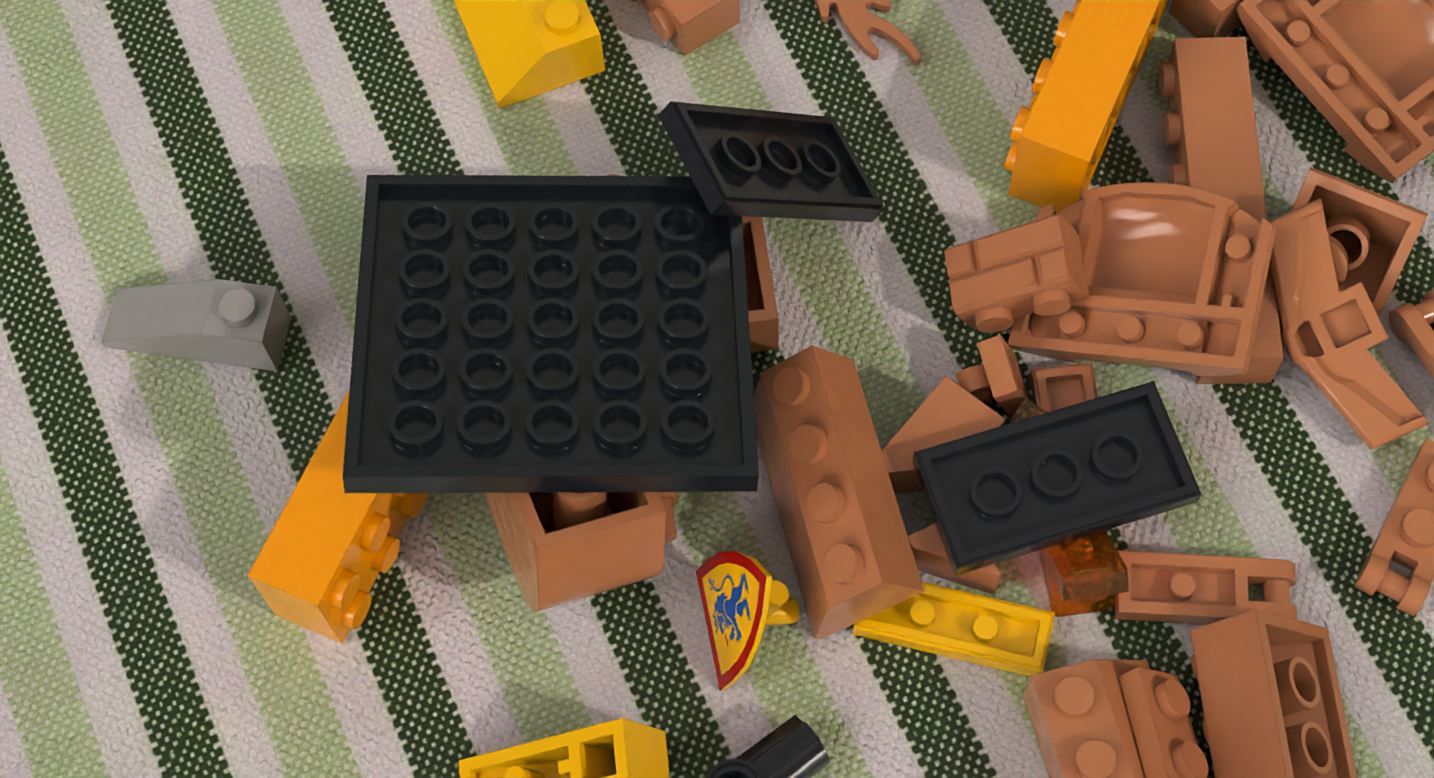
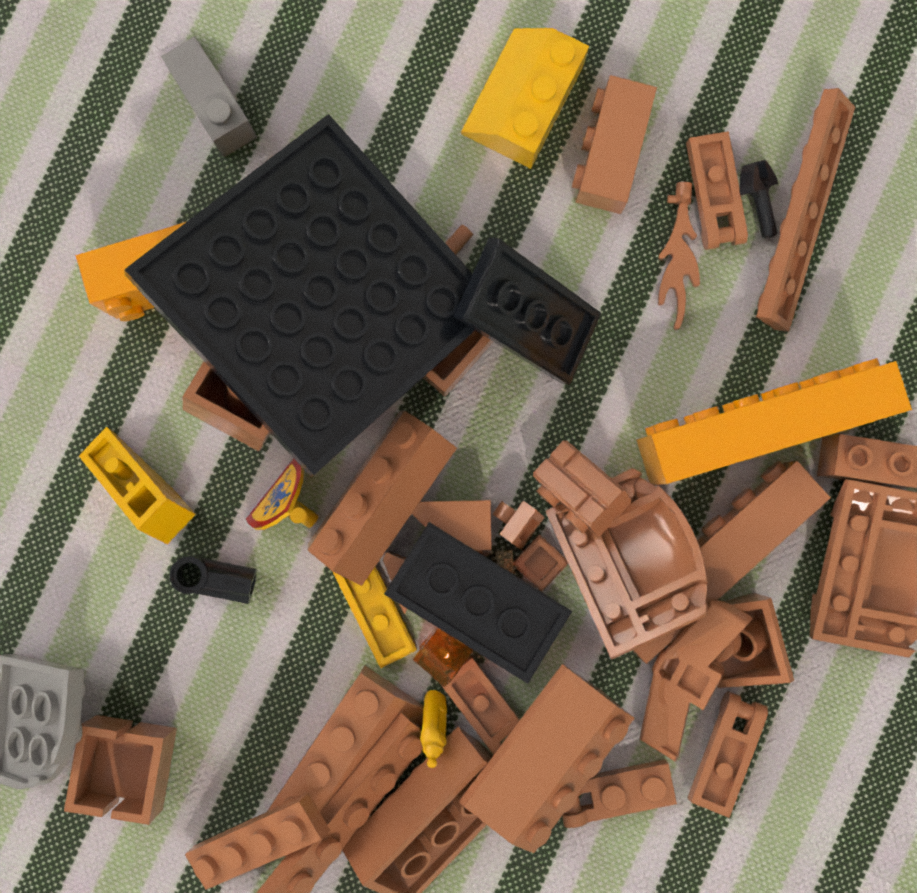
camera: 40 degrees right, 20 degrees up
(1176, 660) = (433, 726): none -> yellow piece
(1315, 551) = (547, 760): none -> nougat slope

